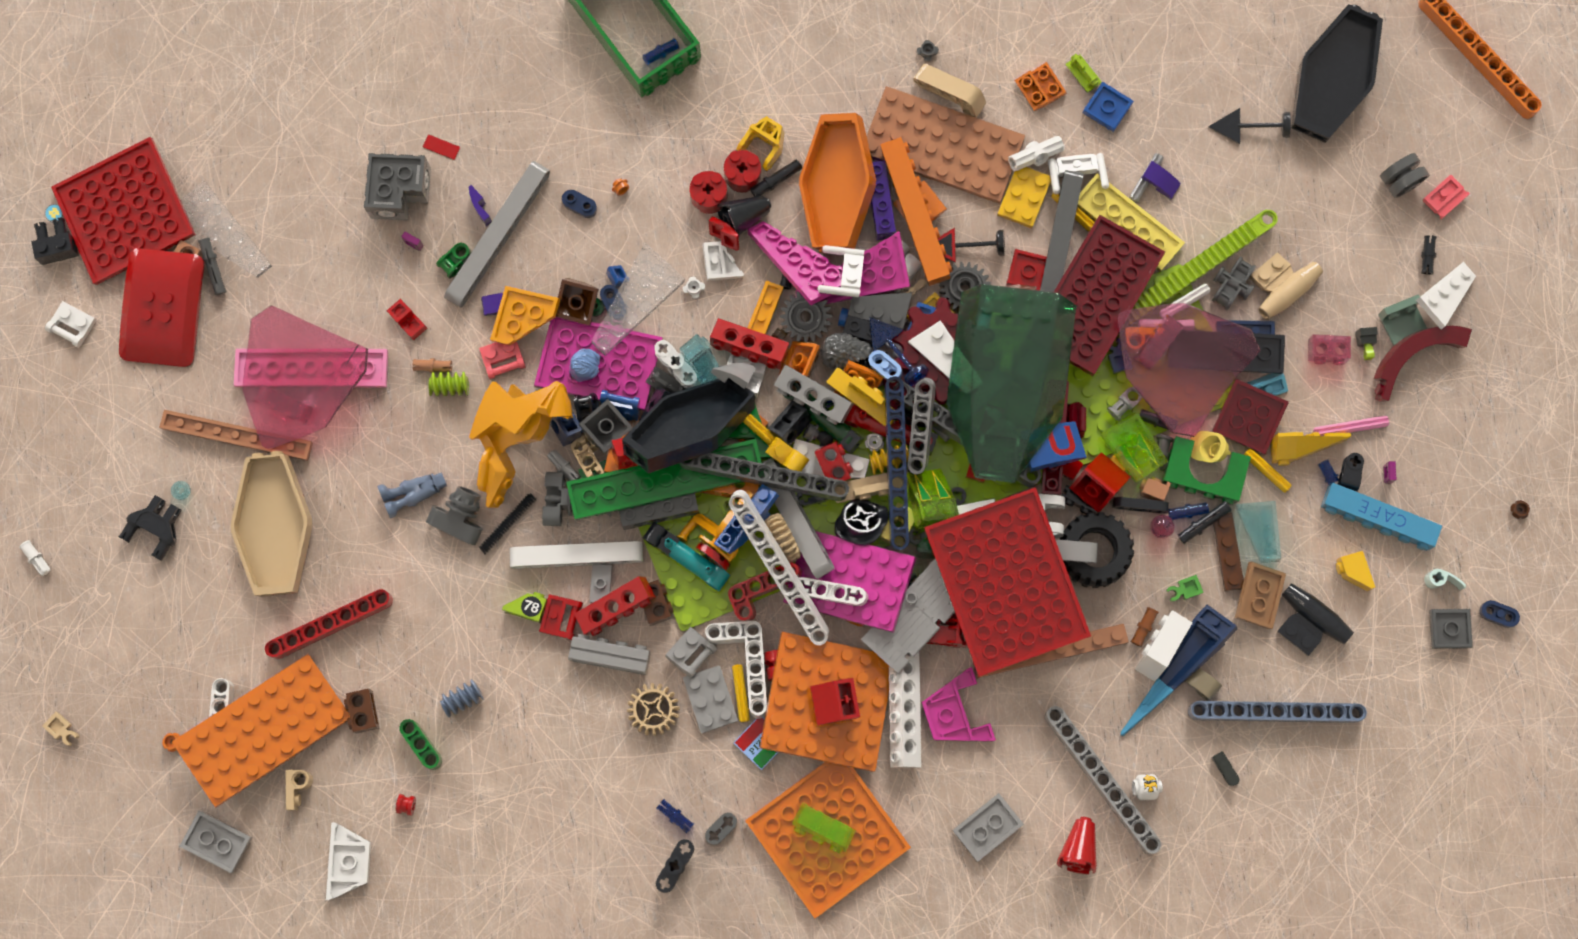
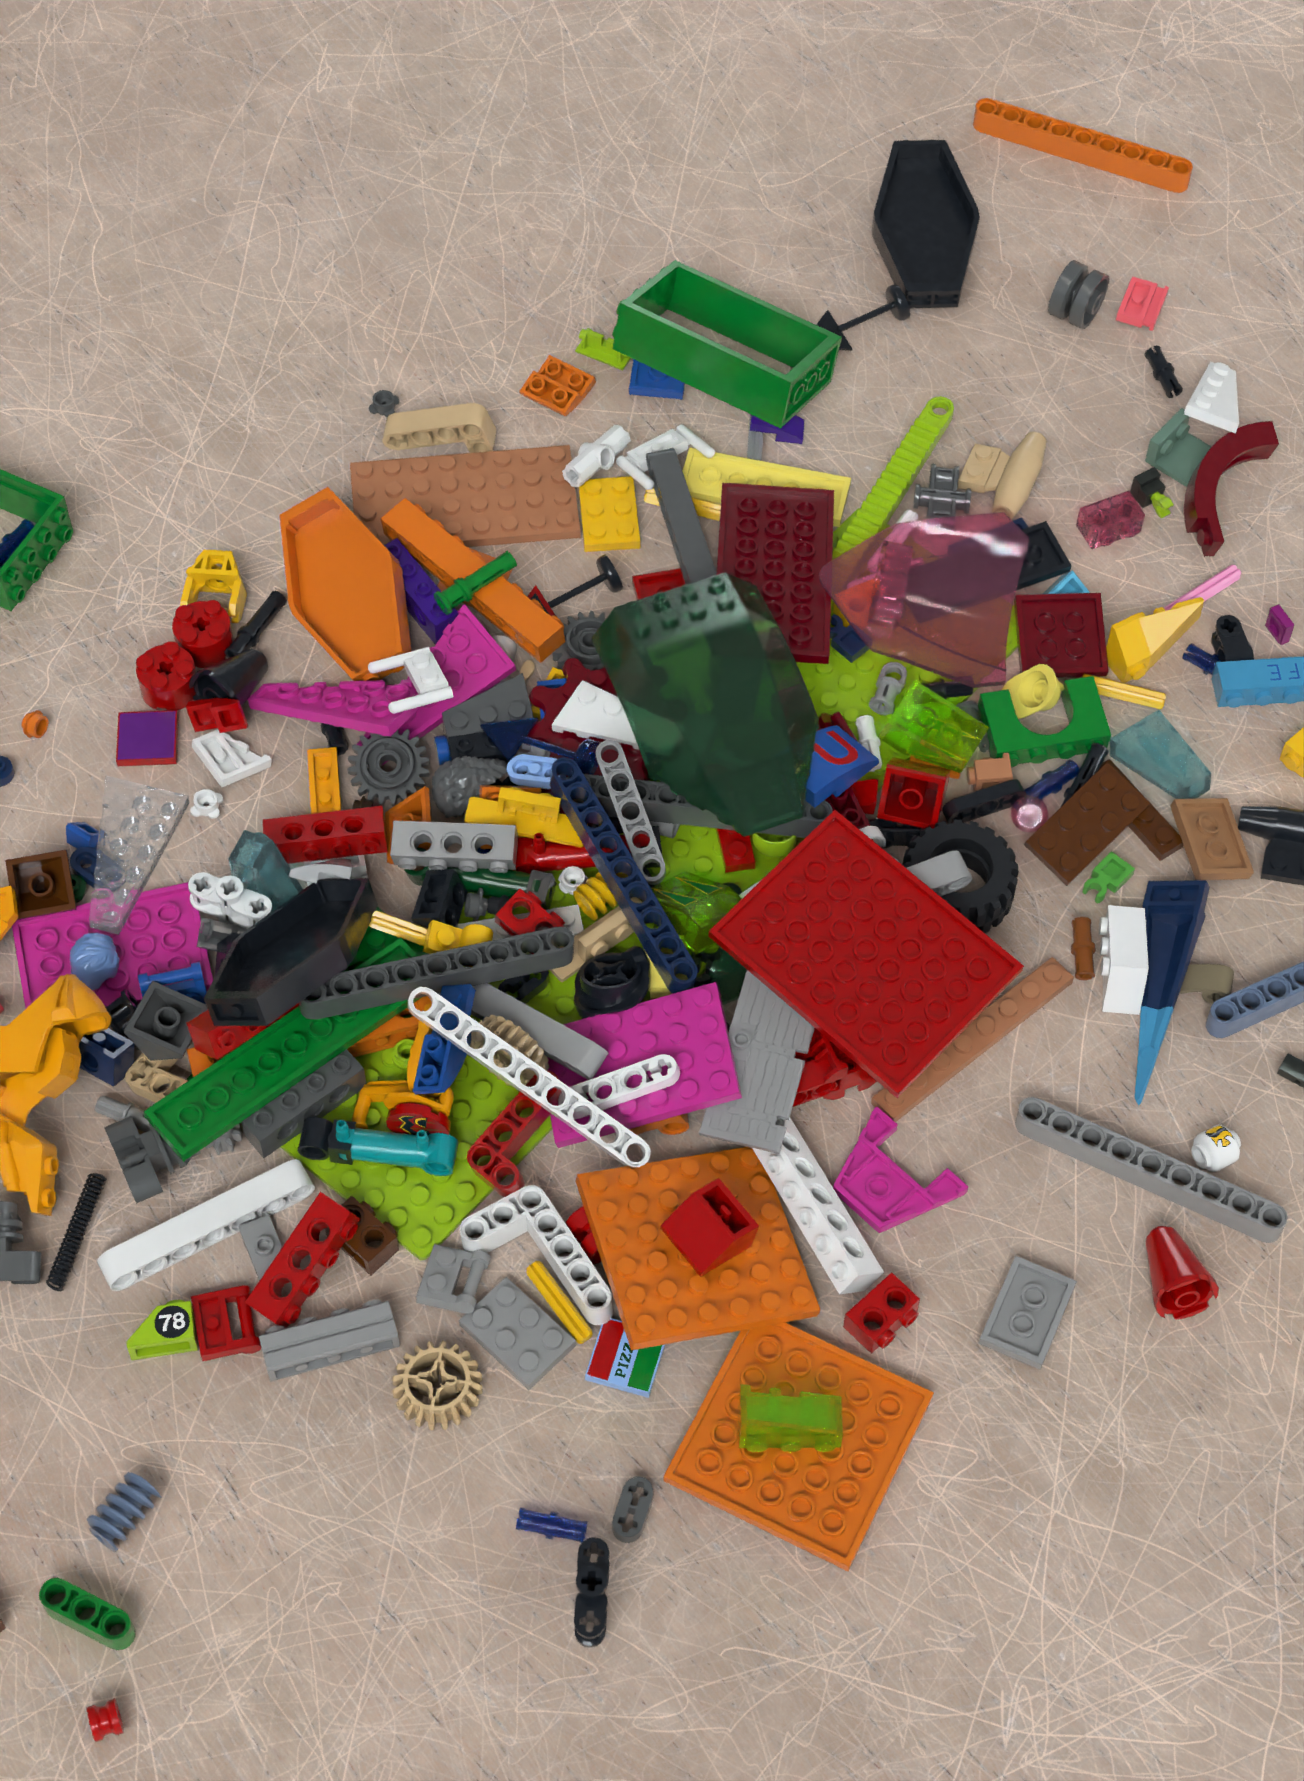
camera: 30 degrees left, 20 degrees down
(680, 226) = (147, 738): none -> dark purple tile
(904, 221) = (463, 589): none -> green pin
(907, 784) = (875, 1309): none -> red brick
(1093, 434) = (868, 737): none -> white axle
(1133, 126) = (713, 367): none -> green door
(1191, 550) = (1087, 824): none -> reddish brown plate

